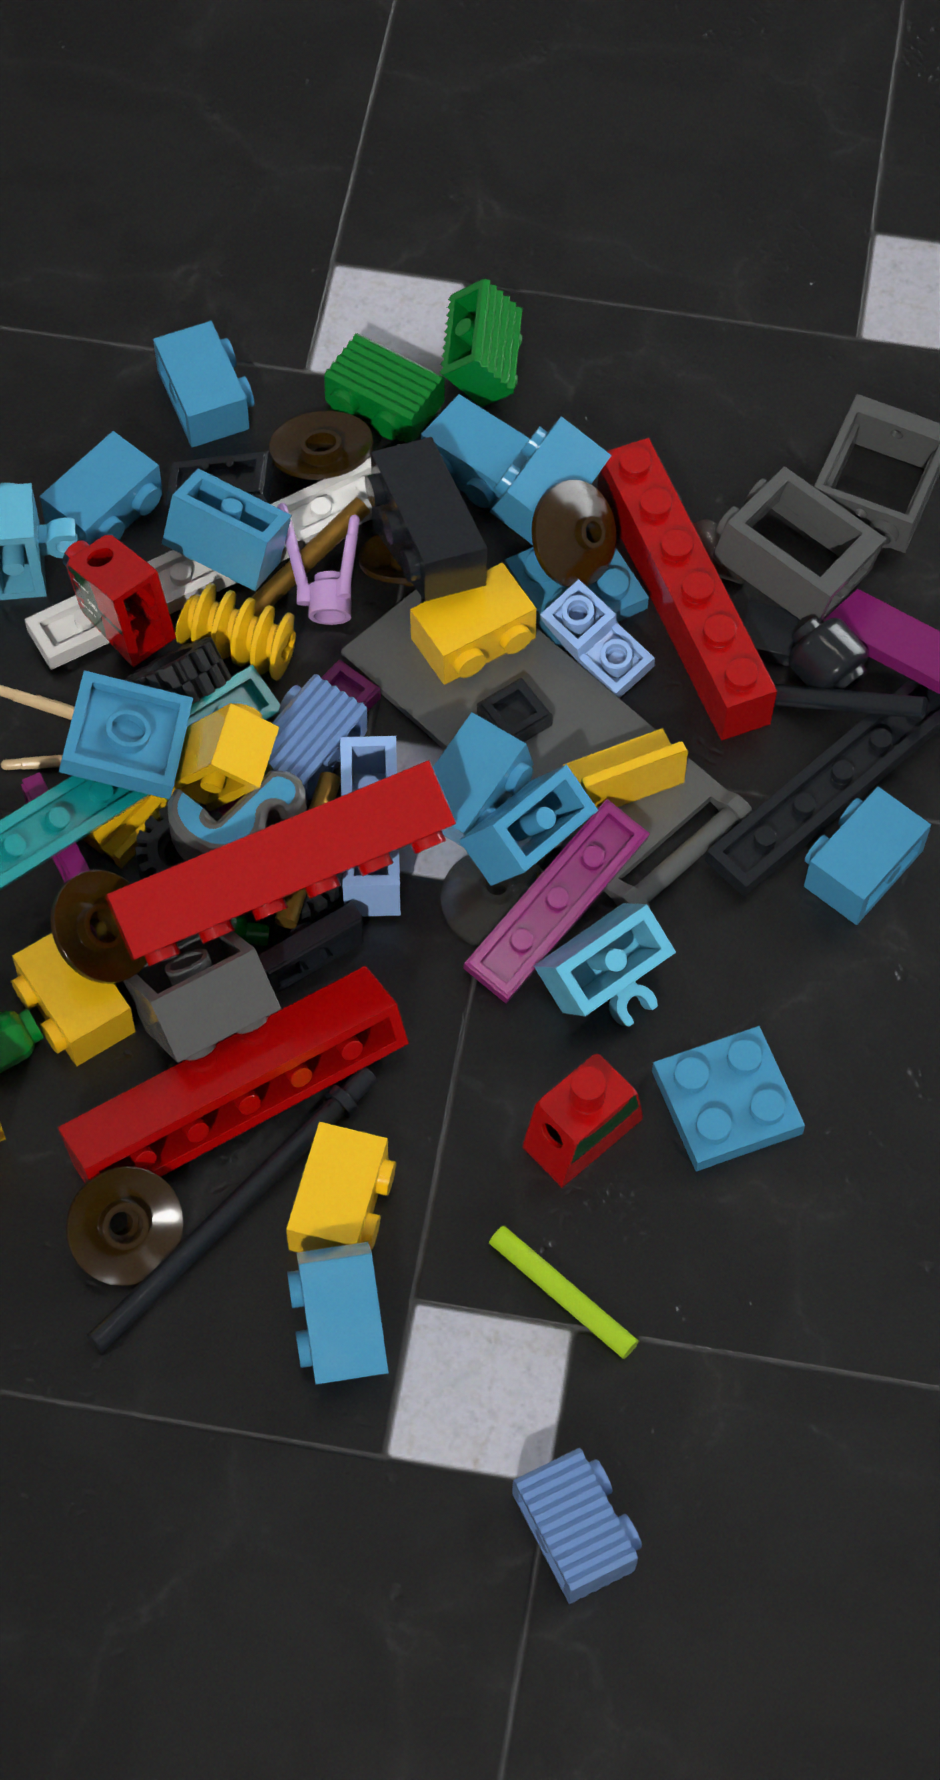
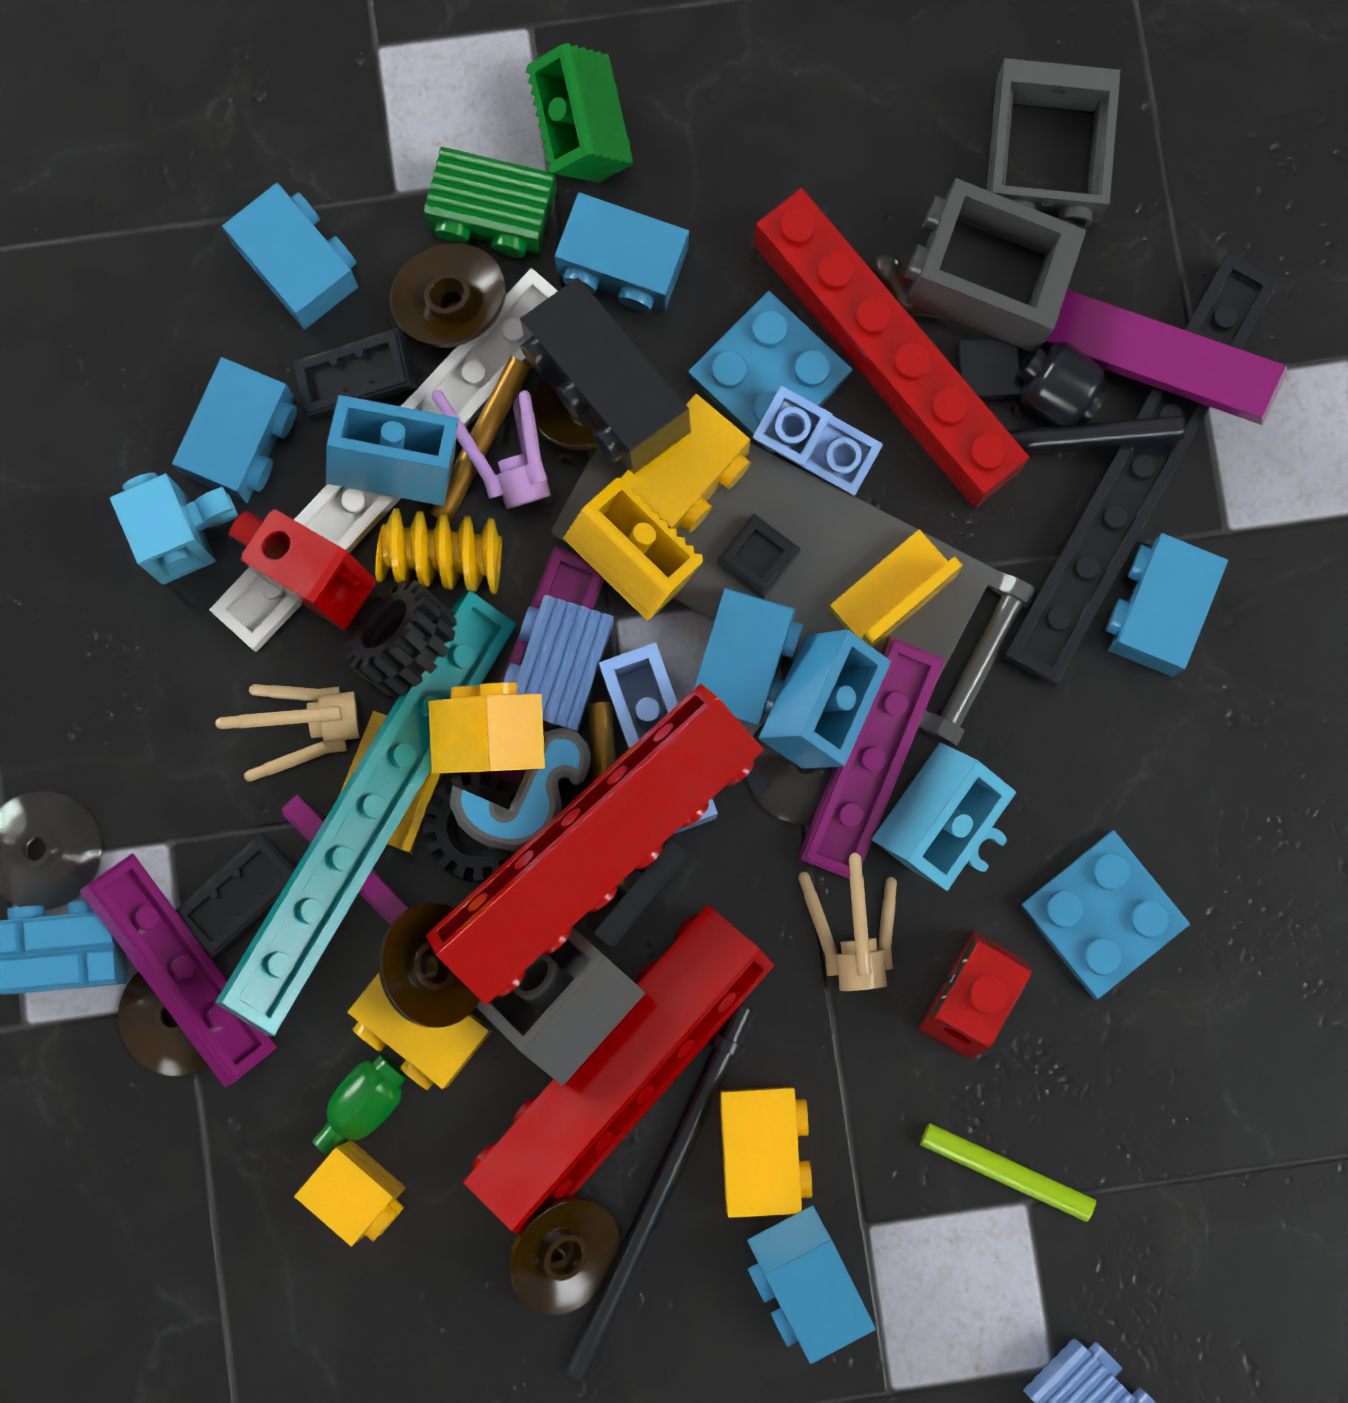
camera: 20 degrees left, 20 degrees up
(126, 735) = (379, 743): dark azure plate -> none
(404, 666) = (633, 548): none -> yellow brick
(487, 1067) = (860, 962): none -> tan plant
(552, 458) = (714, 279): dark azure brick -> none
(573, 533) = (761, 337): dark brown dish -> none

